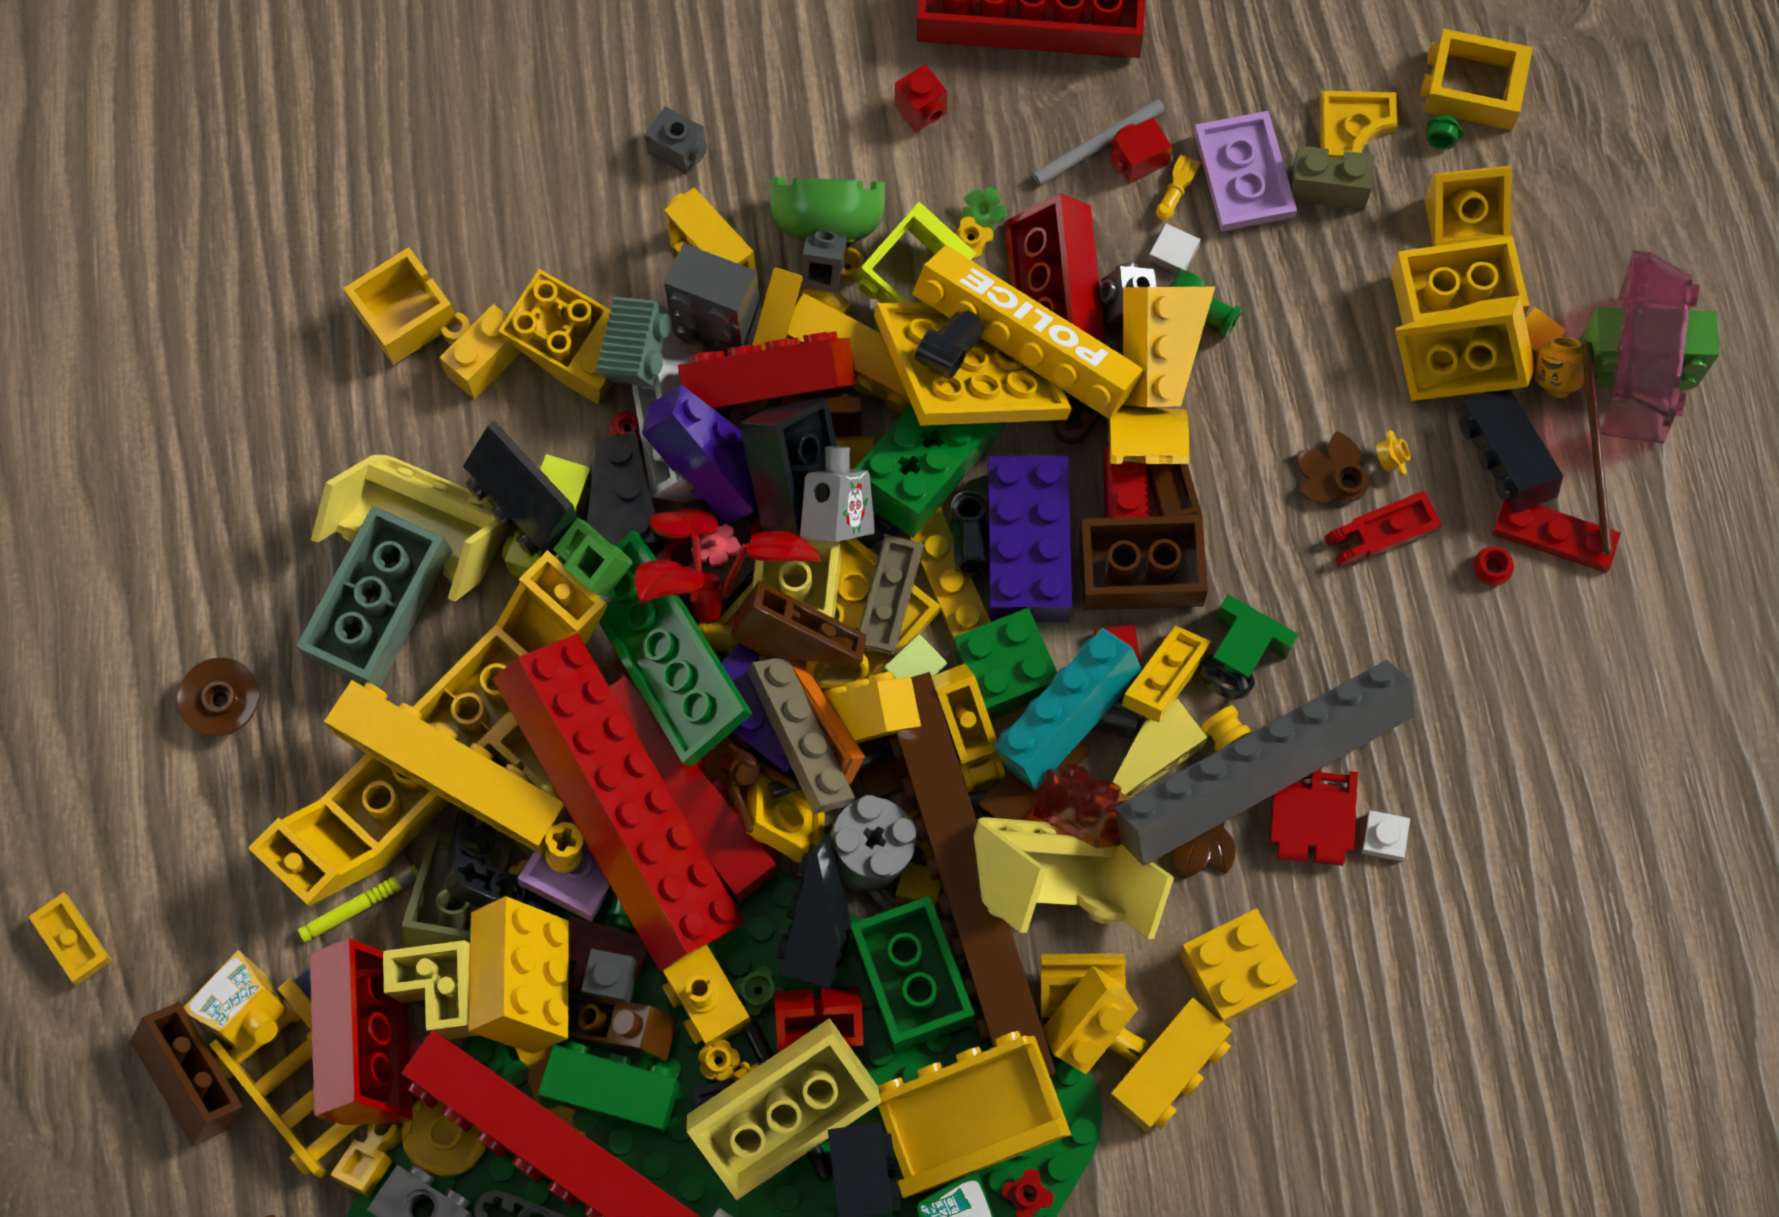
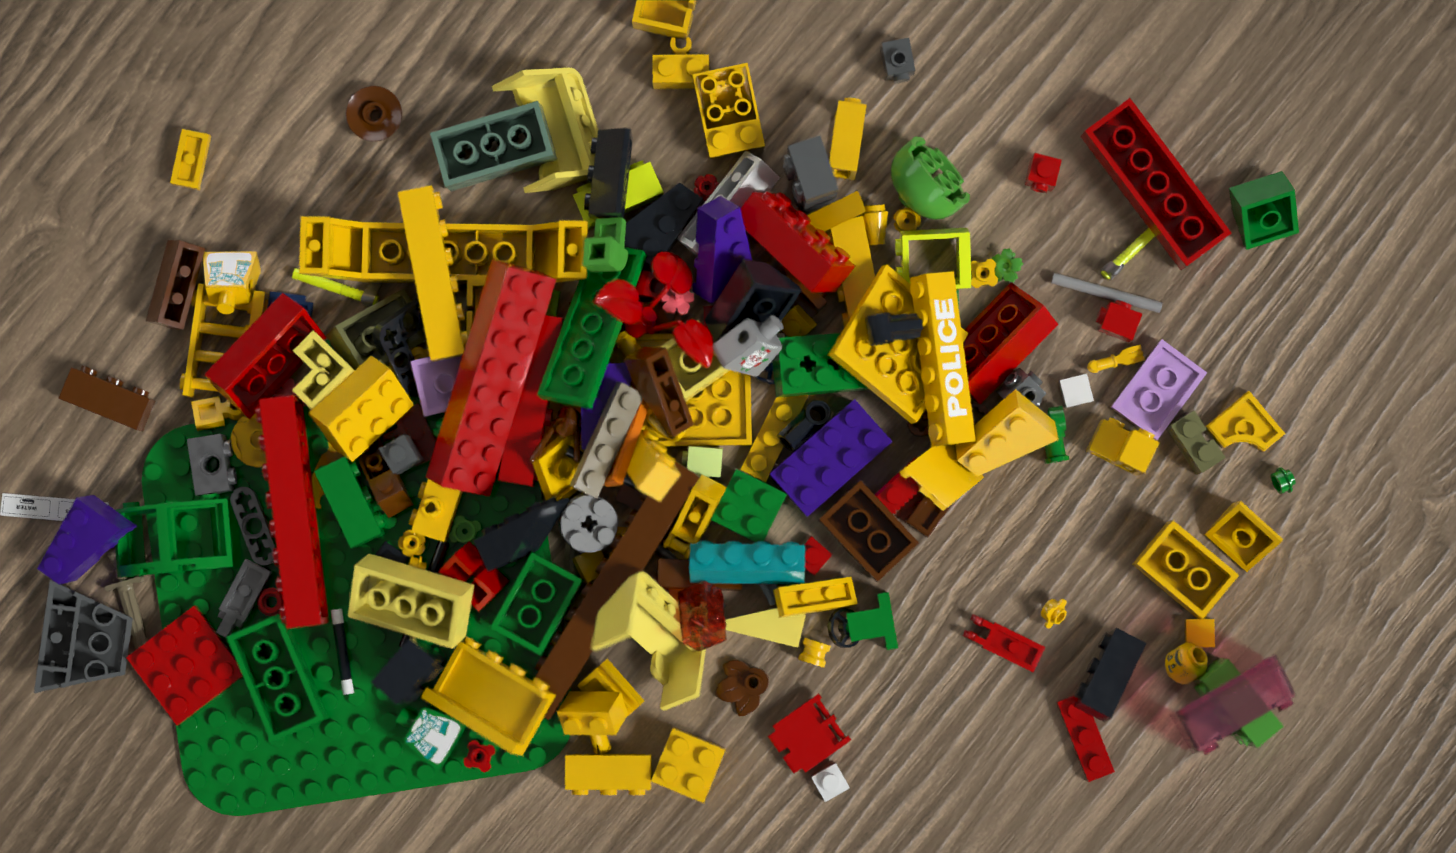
camera: 50 degrees right, 15 degrees up
(571, 857) = (442, 380): yellow bush -> none
(634, 341) = (748, 154): sand green brick -> none
(823, 261) = (888, 211): dark grey brick -> none
(890, 594) = (732, 413): dark tan tile -> none
(1080, 103) = (1114, 267): none -> neon yellow piece
(1264, 762) = (809, 690): dark grey brick -> none
(1280, 247) = (1122, 448): none -> yellow brick
(1329, 468) = (1016, 583): reddish brown plate -> none
(1467, 350) = (1147, 607): yellow slope -> none
(1470, 106) = (1329, 507): yellow window -> none
(1498, 556) = (1044, 718): red plate -> none
(1597, 447) = (1144, 726): reddish brown axle -> none

